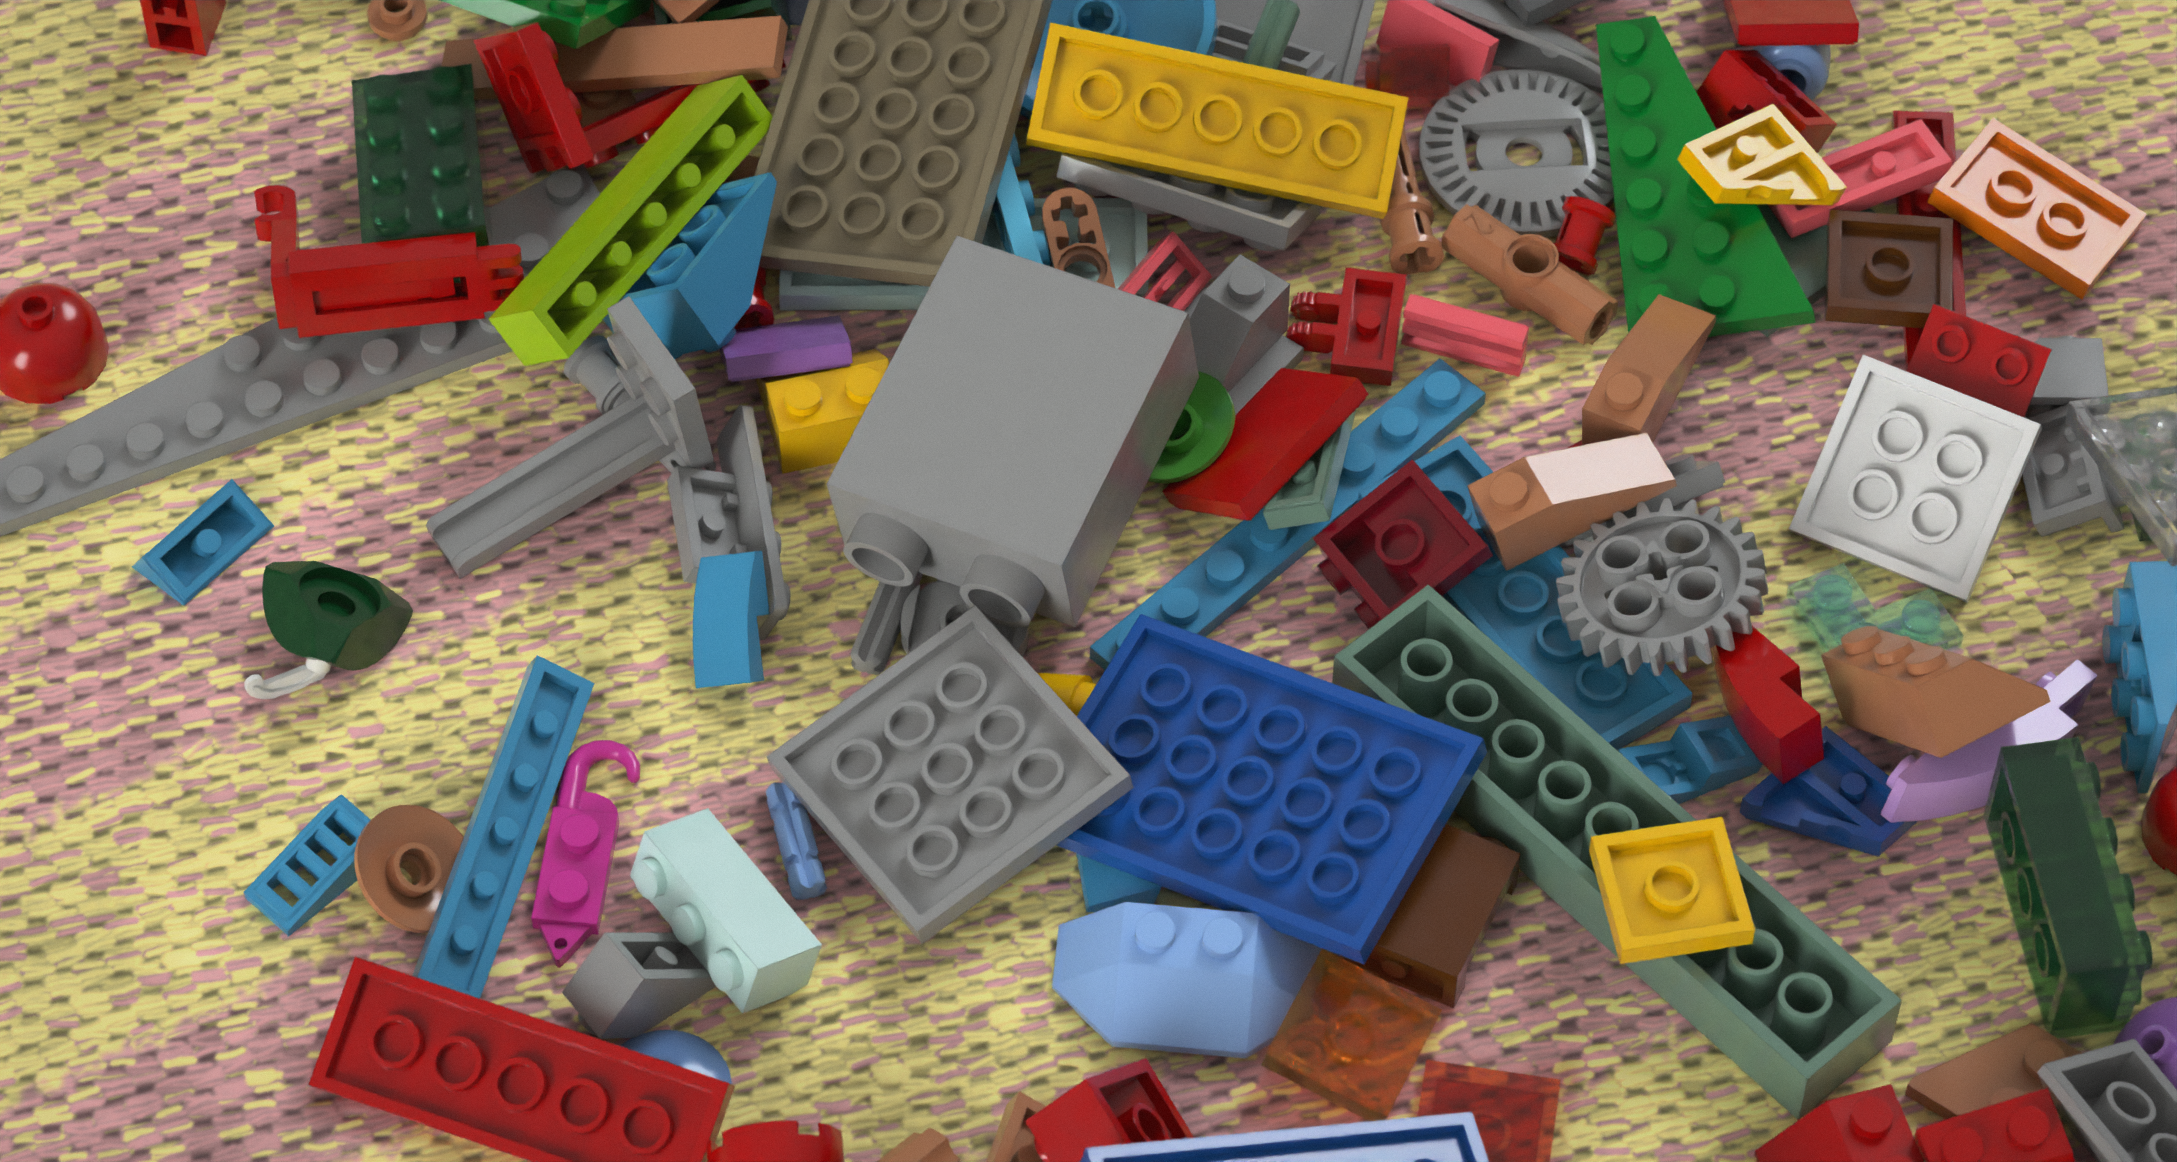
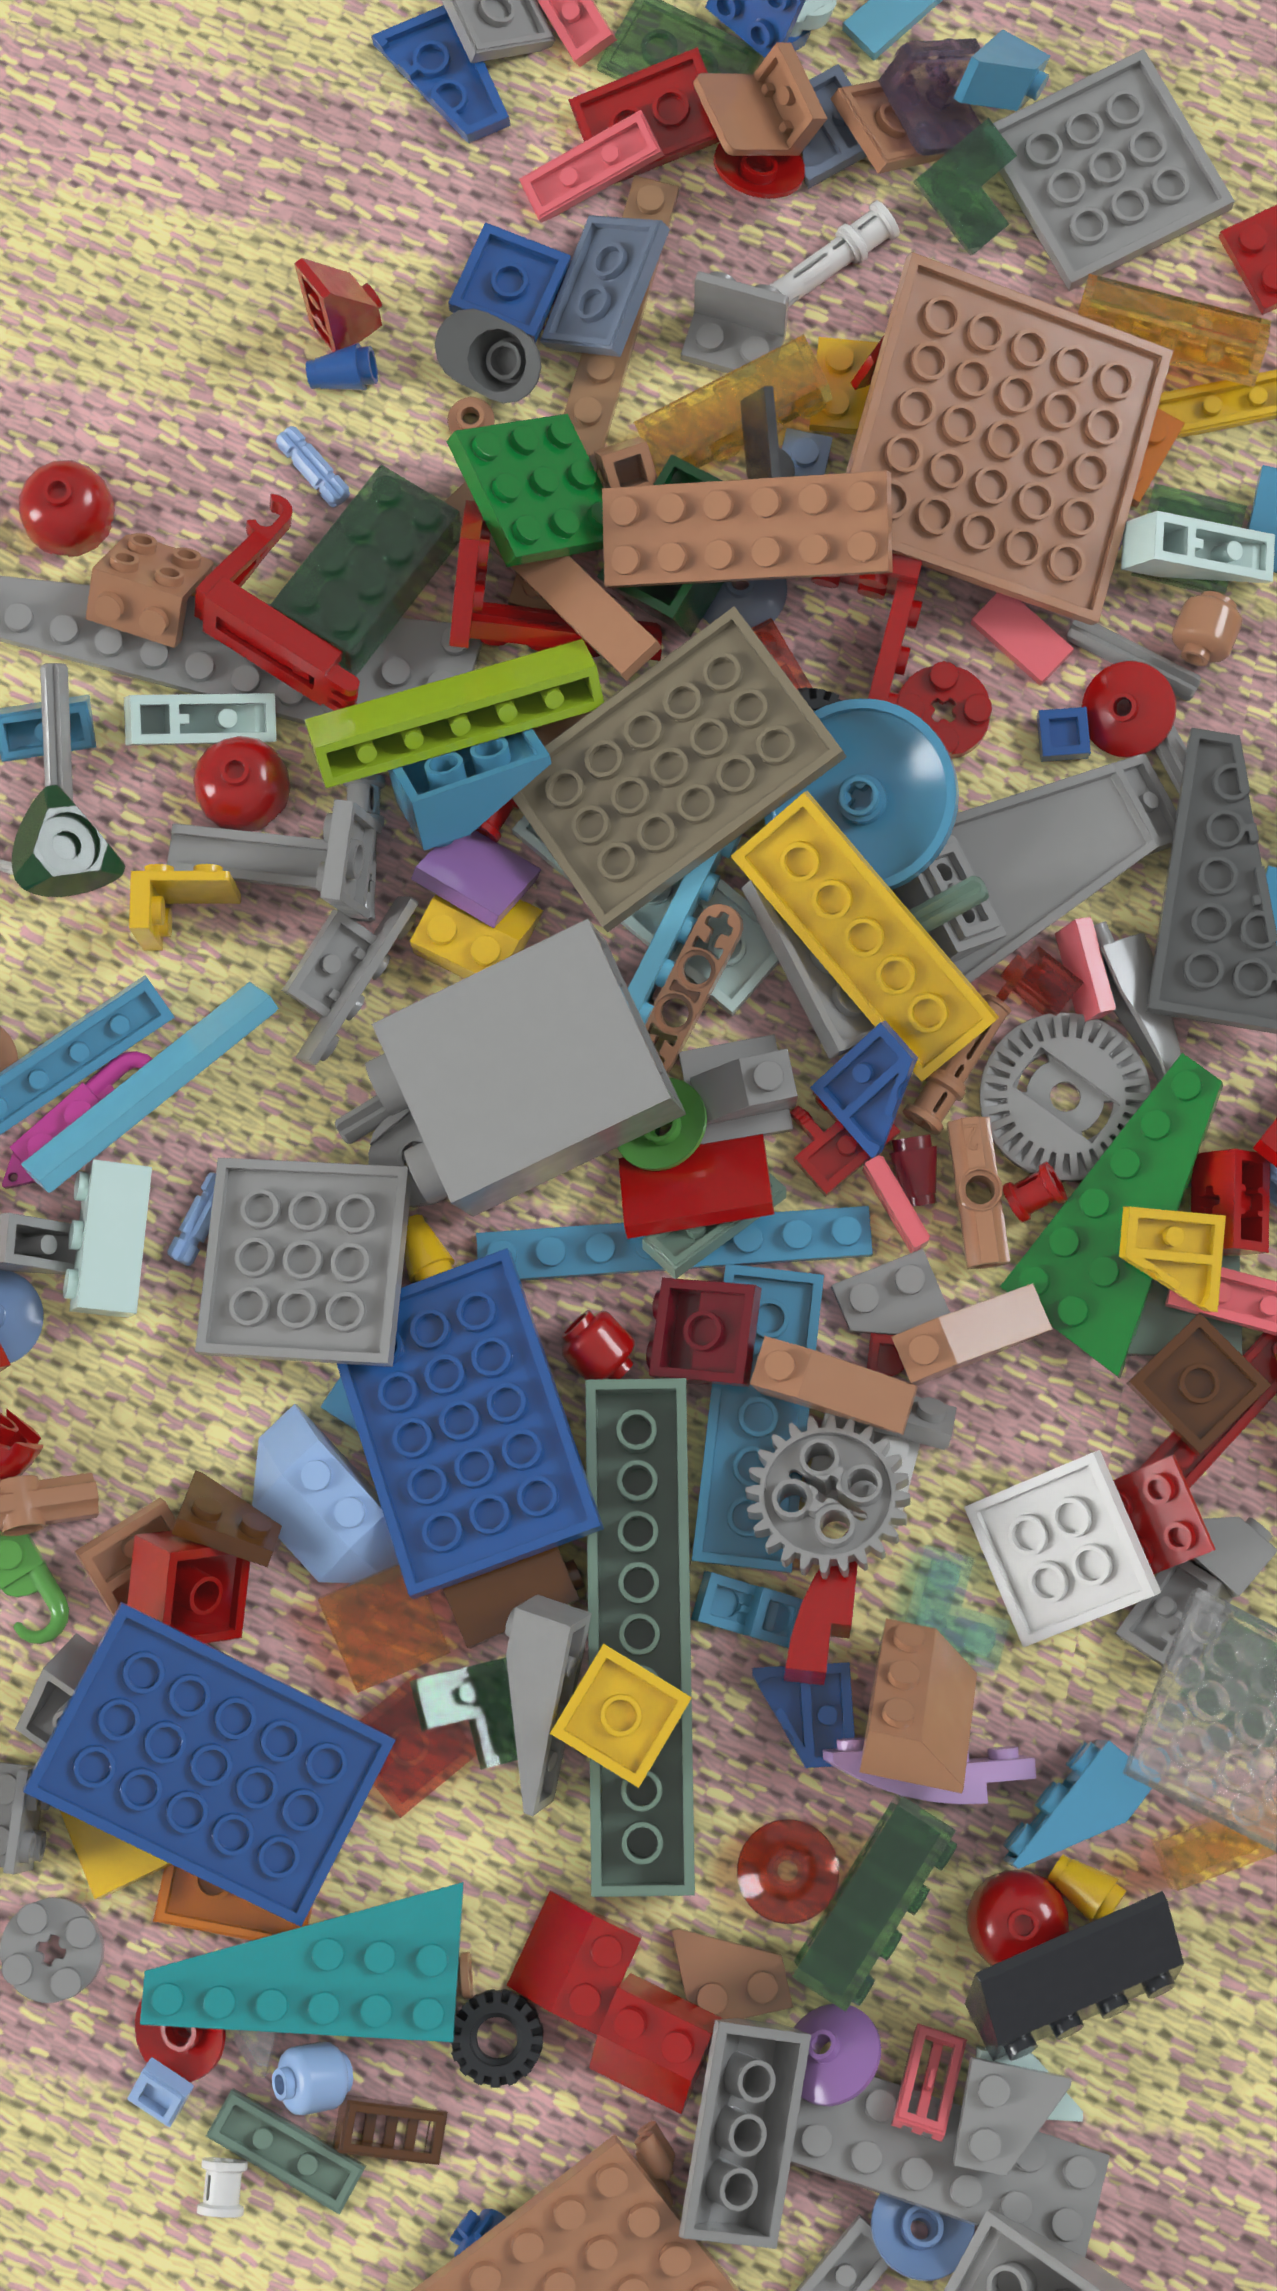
camera: 45 degrees right, 25 degrees up
(206, 347) = (145, 588): none -> nougat bracket
(220, 512) = (56, 726): none -> light grey axle
(226, 52) = (343, 369): none -> blue cone
(271, 151) = (313, 466): none -> light blue axle
(362, 417) = (198, 718): none -> light aqua slope
(459, 442) = (241, 784): none -> red cylinder
(494, 555) = (162, 885): none -> yellow bracket
(632, 750) = (149, 1087): none -> medium azure tile
(725, 624) = (281, 1036): dark azure slope -> none
(1085, 1055) = (225, 1522): none -> reddish brown wing
(1184, 260) = (699, 1012): coral tile -> none
(1307, 639) = (598, 1346): none -> red head
(1343, 245) = (869, 1086): none -> blue wing
(1449, 285) = (916, 1168): none -> dark red cone
(1517, 1022) = (476, 1695): none -> clear green plate
(1535, 414) = (891, 1296): none -> light grey wing
(1553, 923) = (543, 1674): none -> light grey slope
(1964, 919) = (816, 1871): none -> clear red dish

